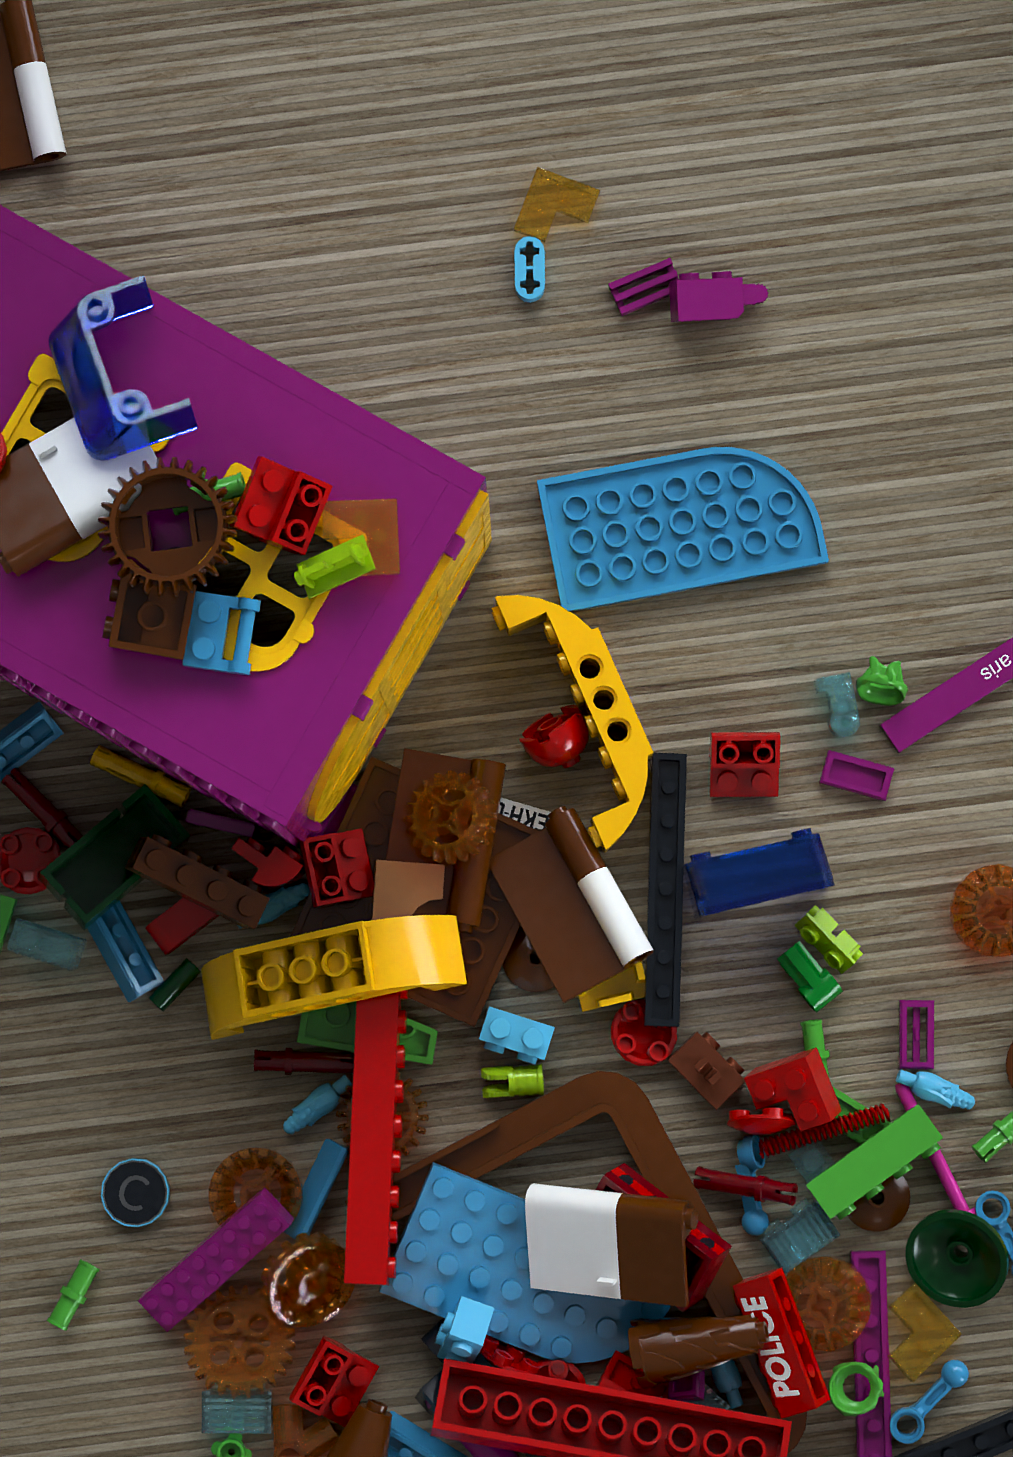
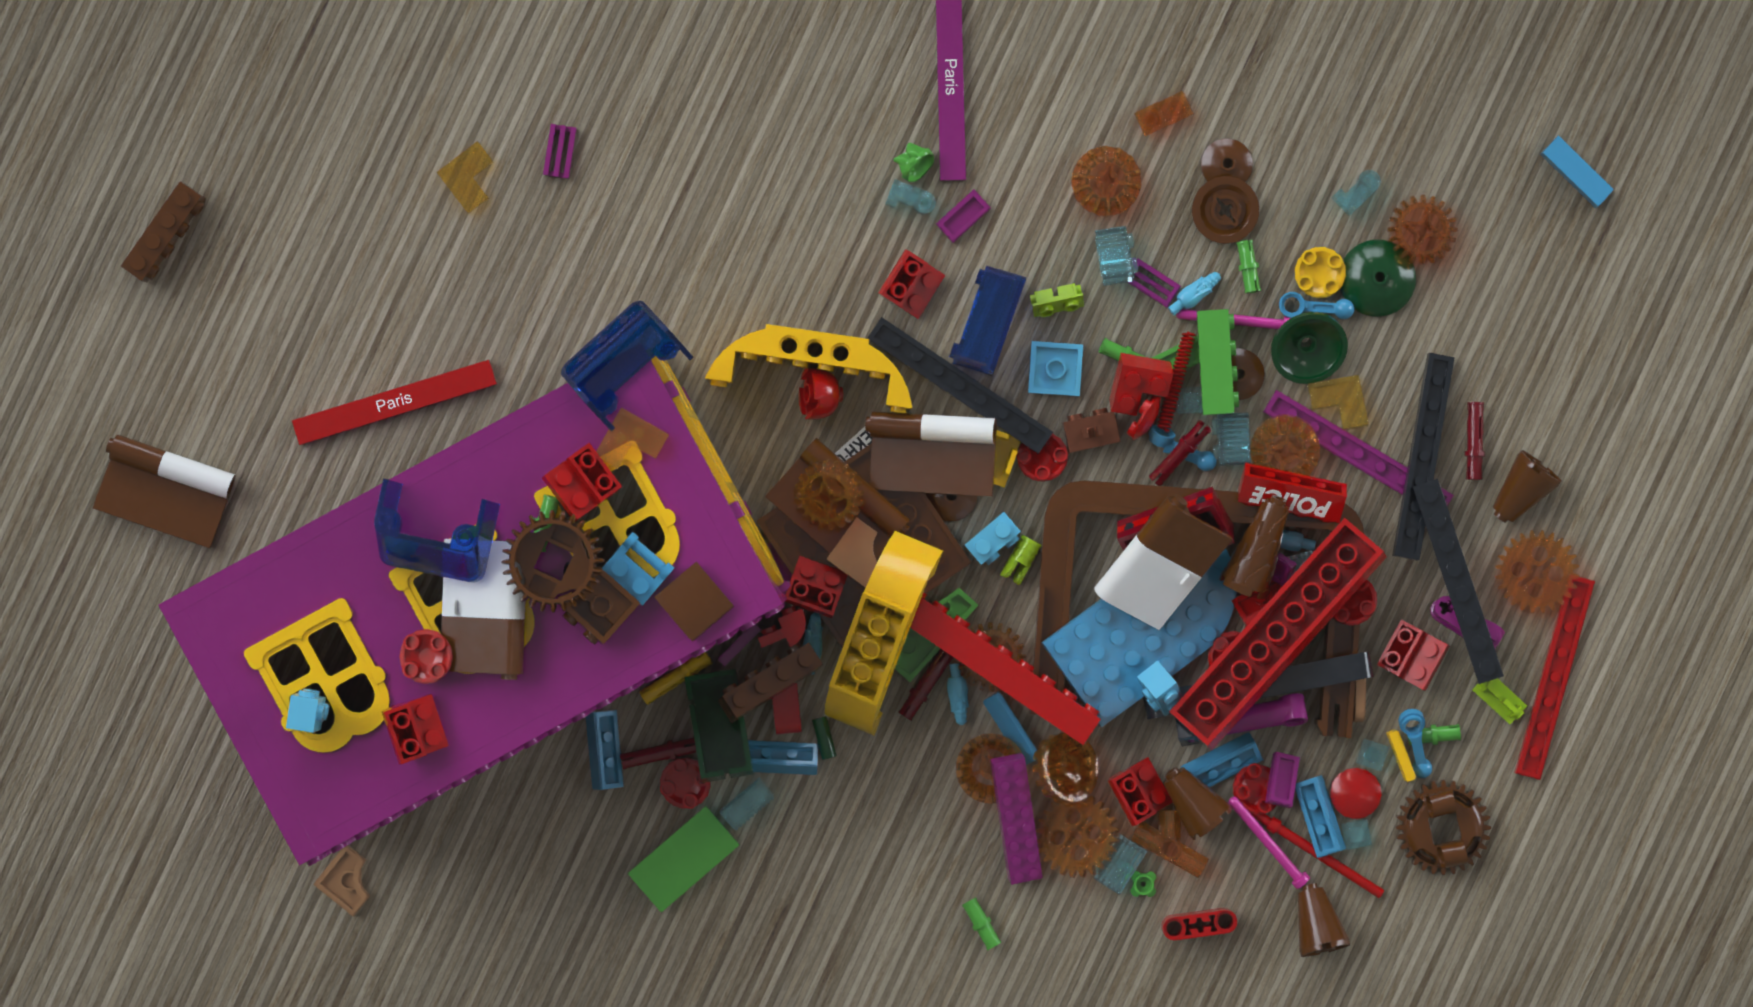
camera: 60 degrees left, 5 degrees up
(135, 1192) = (941, 844): black tile -> none
(224, 722) = (694, 601): none -> reddish brown slope
(254, 278) = (394, 402): none -> red tile
(335, 567) = (640, 472): lime hinge -> none
(451, 458) = (617, 356): none -> clear blue windscreen
(507, 1357) = (1193, 671): red dish -> none
(537, 269) = (497, 224): medium azure beam -> none
(676, 525) = (729, 230): dark azure plate -> none
(712, 298) = (595, 114): magenta hinge -> none
(751, 985) = (1055, 368): none -> medium azure plate
(814, 983) = (1078, 327): green piece -> none
(838, 1397) = (1346, 477): bright green piece -> none
(921, 972) = (1115, 256): none -> clear light blue brick
(953, 1375) = (1380, 396): dark azure piece -> none

